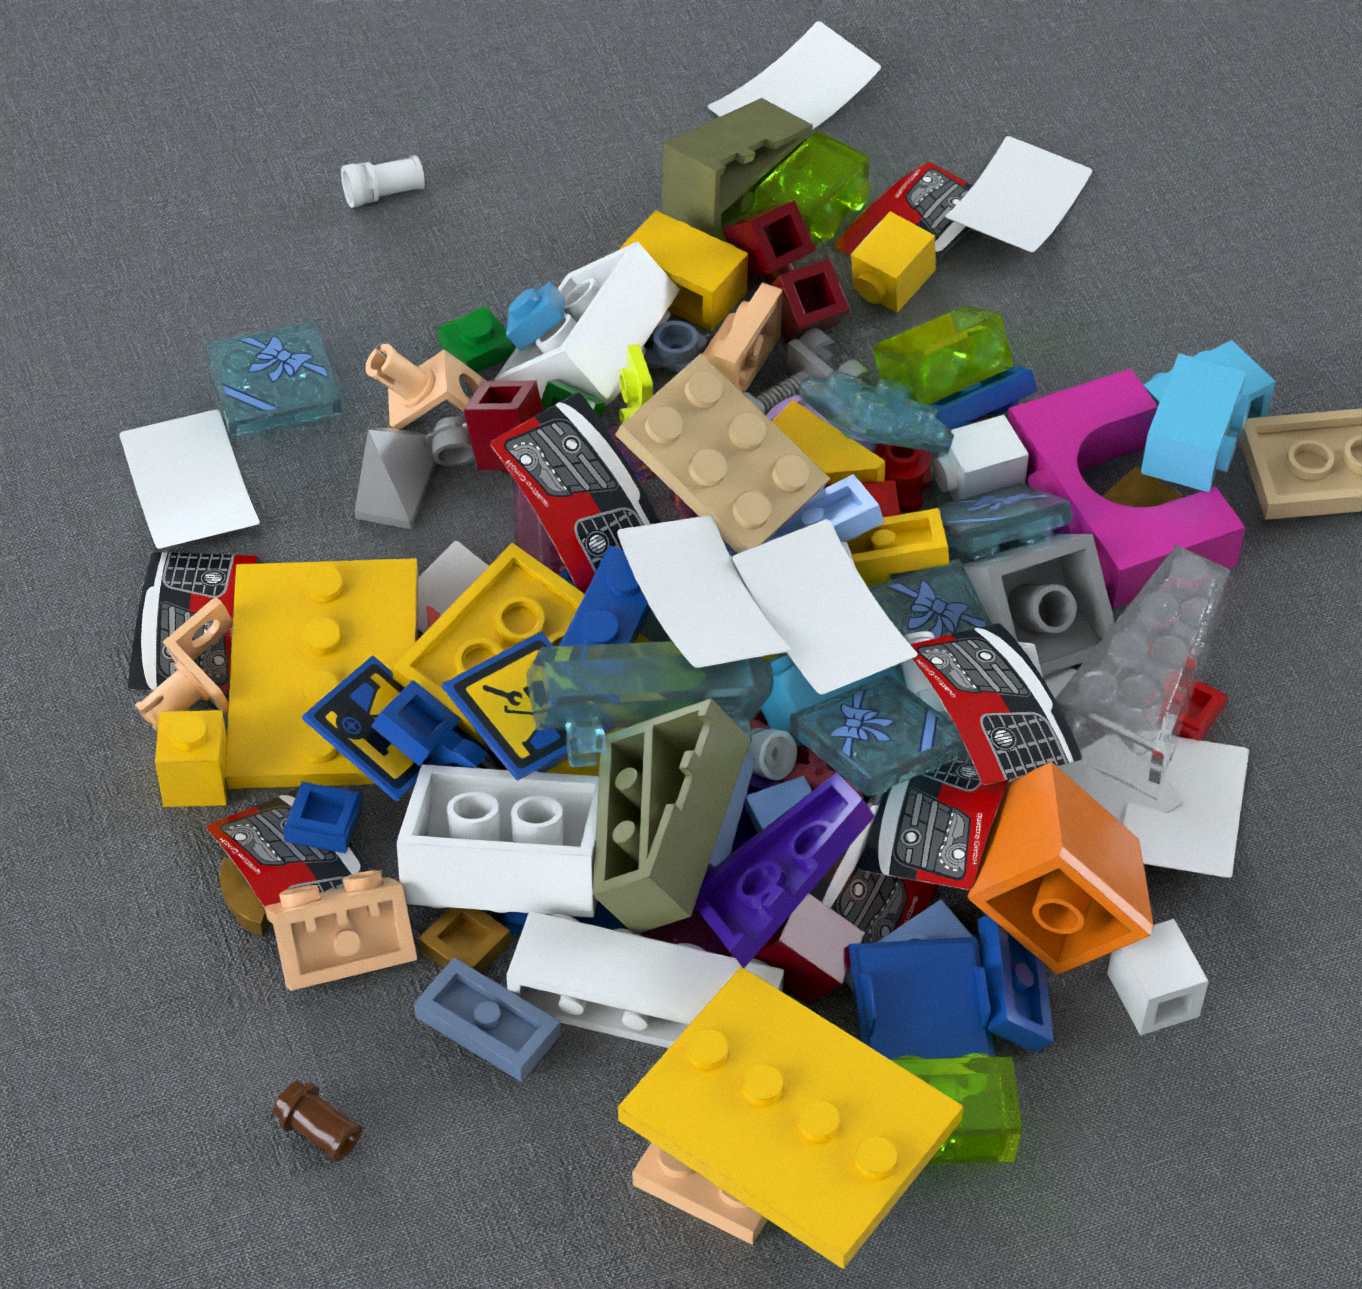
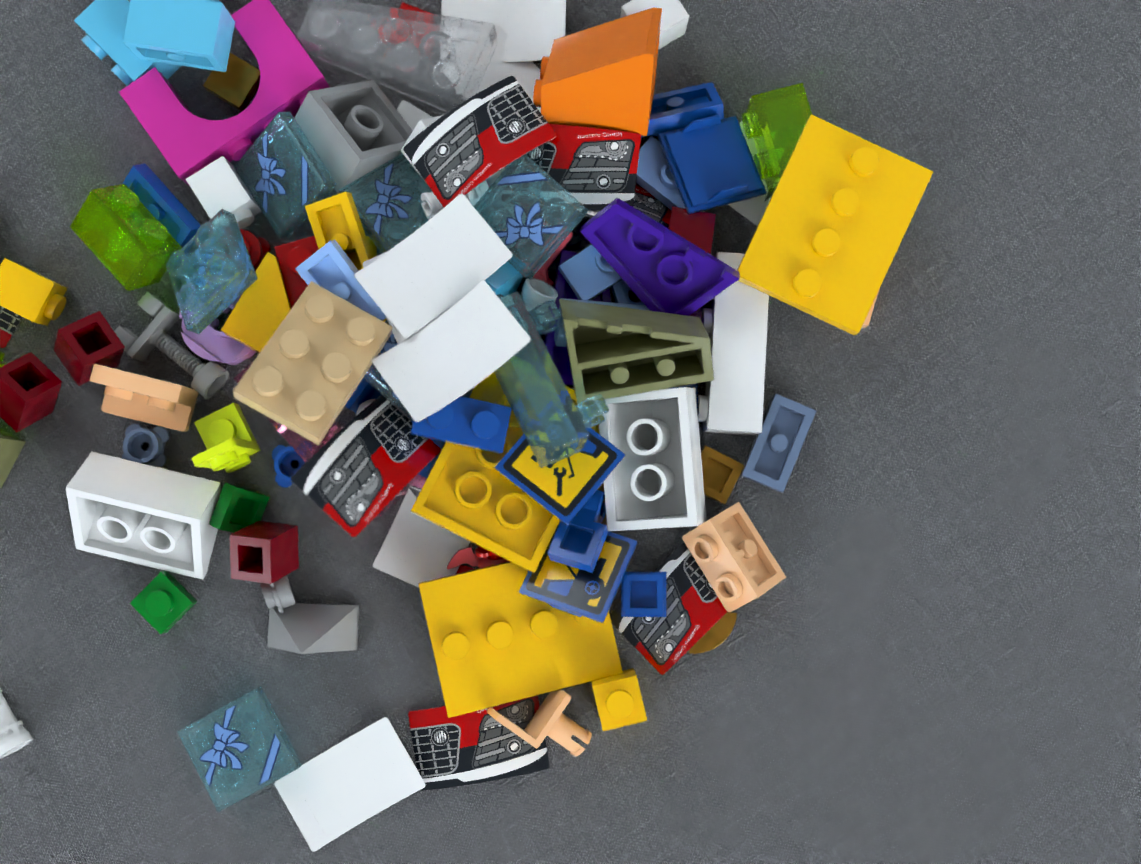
camera: 100 degrees left, 35 degrees up
(315, 1119) = (876, 533): reddish brown pin -> none
(420, 388) = (229, 624): light nougat bracket -> none
(534, 314) = (139, 558): dark azure plate -> none
(705, 269) = (58, 450): yellow brick -> none

